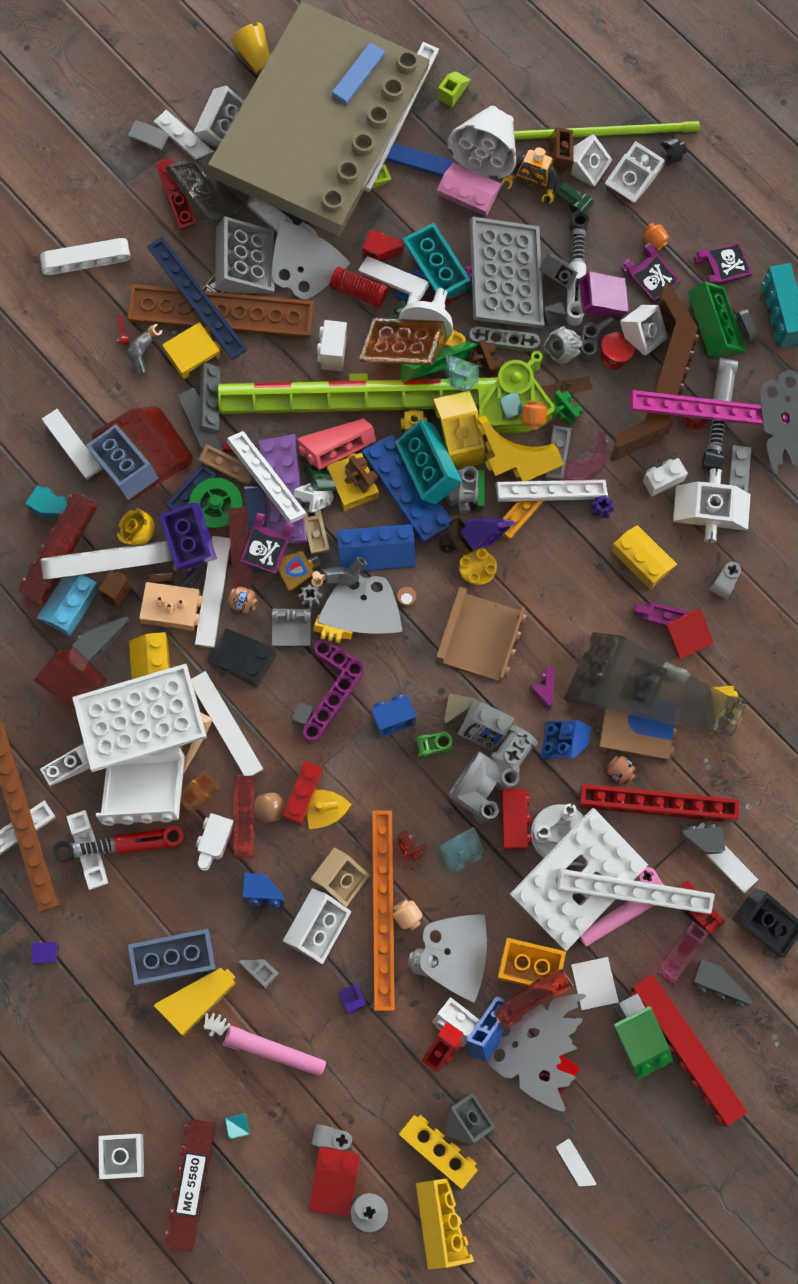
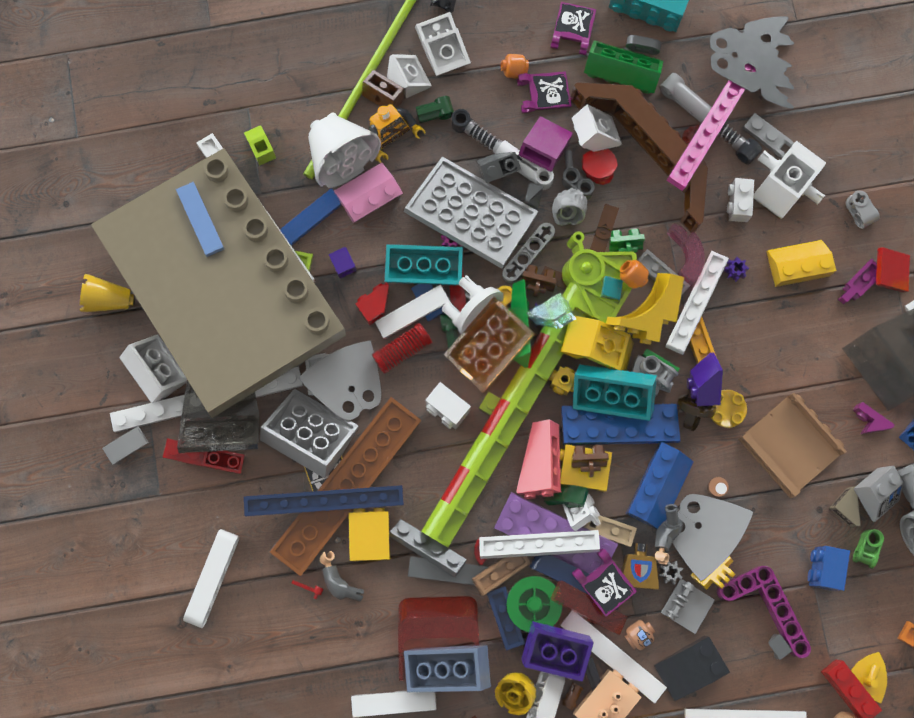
camera: 55 degrees left, 5 degrees up
(397, 203) = (342, 262): none -> dark purple panel

